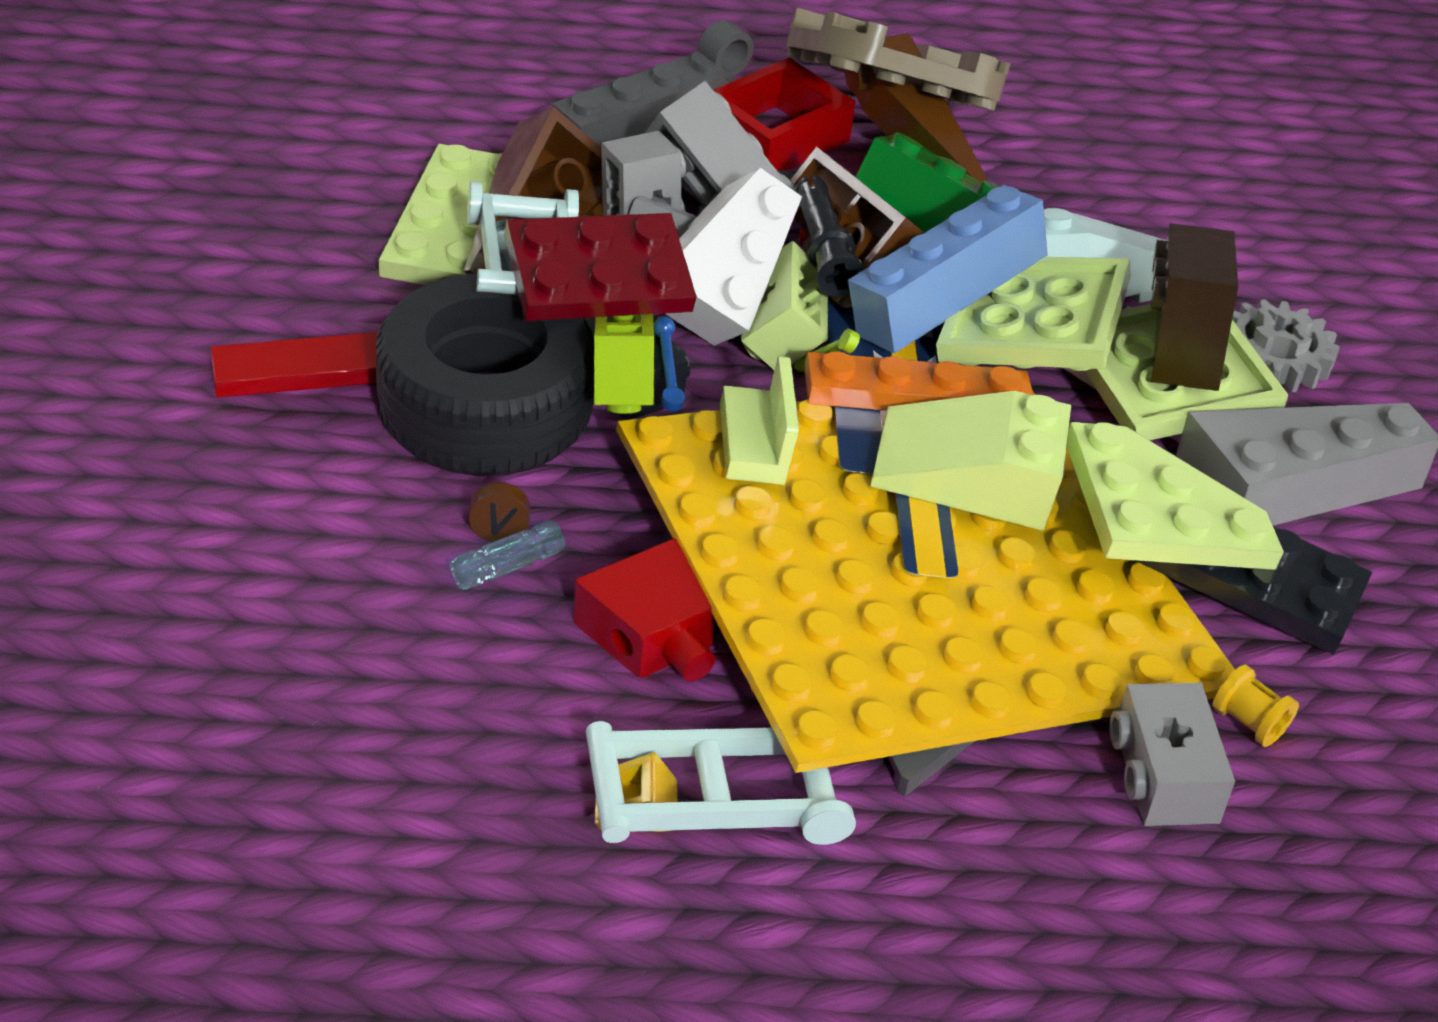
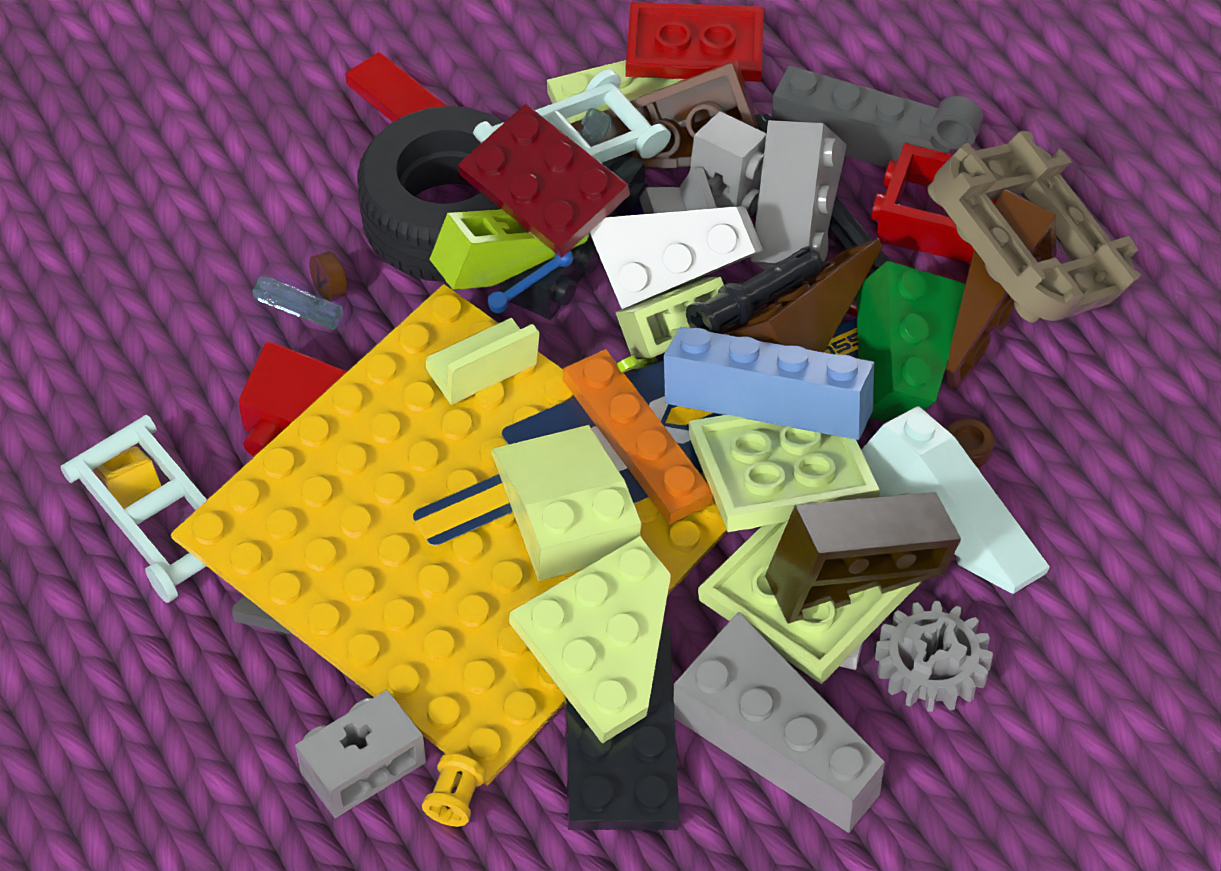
camera: 65 degrees right, 10 degrees up
(440, 148) = (692, 39): none -> red tile

